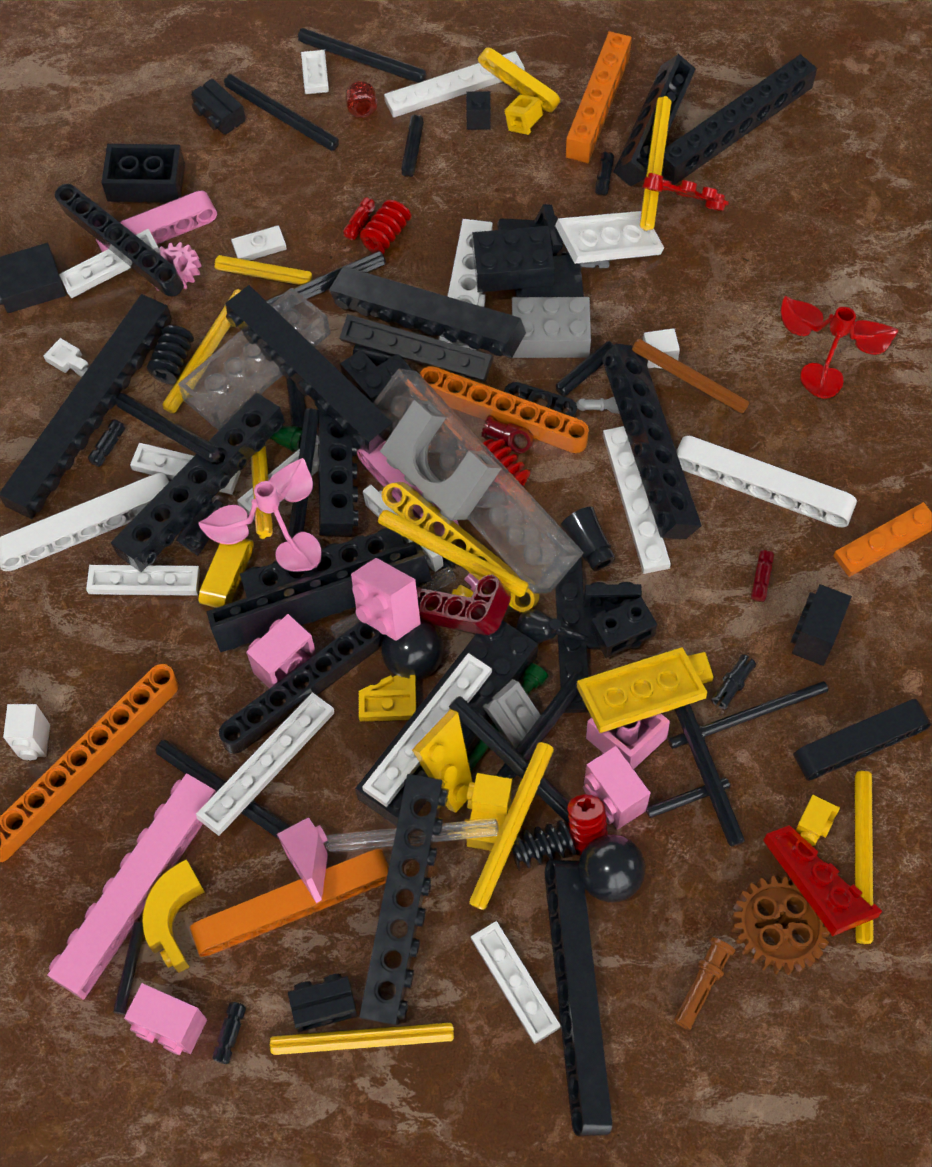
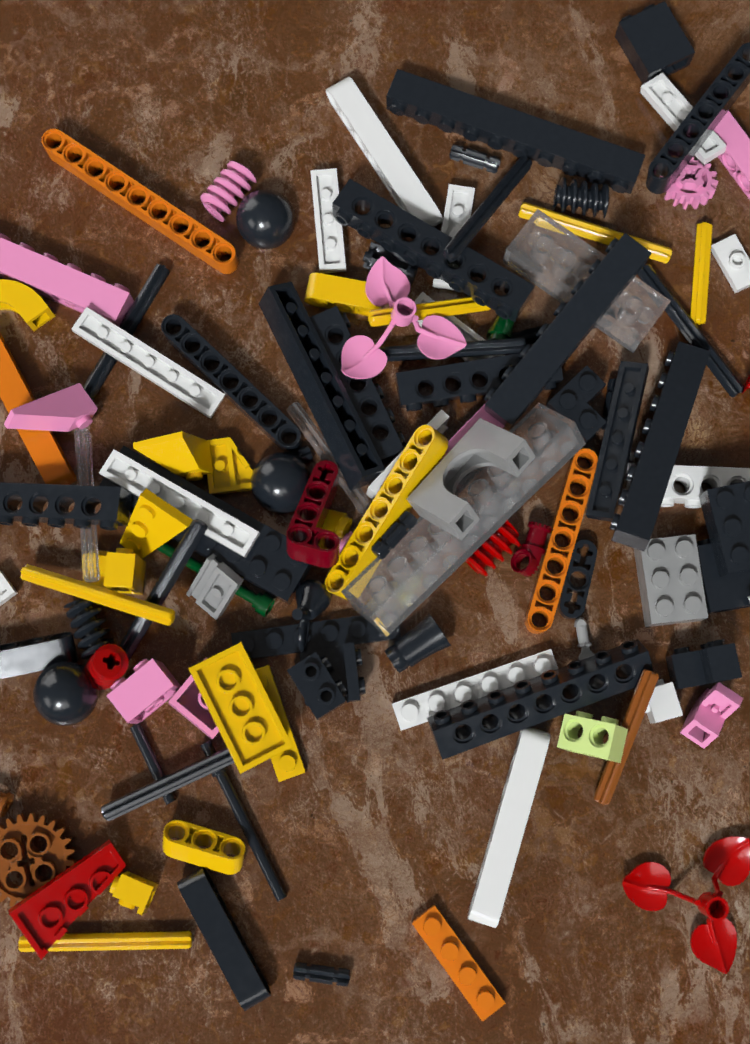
camera: 85 degrees right, 15 degrees up
(26, 731) = (157, 146): white brick -> none
(66, 356) = (565, 100): white plate -> none
(89, 671) = (226, 188): none -> bright pink piece
(128, 640) = (265, 219): none -> black piece
(280, 651) = (255, 357): bright pink brick -> none
(374, 733) = (179, 453): none -> yellow slope
(386, 599) = (308, 443): bright pink brick -> none
(451, 551) = (370, 505): yellow axle -> none
(484, 539) = (394, 535): none -> black axle
(545, 722) = (209, 616): black axle -> none
(583, 370) = (626, 624): black axle -> none
(630, 306) = (709, 665): none -> black brick
(673, 312) = (709, 714): none -> bright pink brick
(695, 403) = (592, 737): none -> yellowish green brick
(733, 681) = (276, 803): black pin -> none
(762, 576) = (399, 828): dark red axle -> none
(774, 749) = (213, 857): none -> yellow beam
(820, 624) = (338, 890): black brick -> none
(896, 656) = (321, 974): none -> black axle

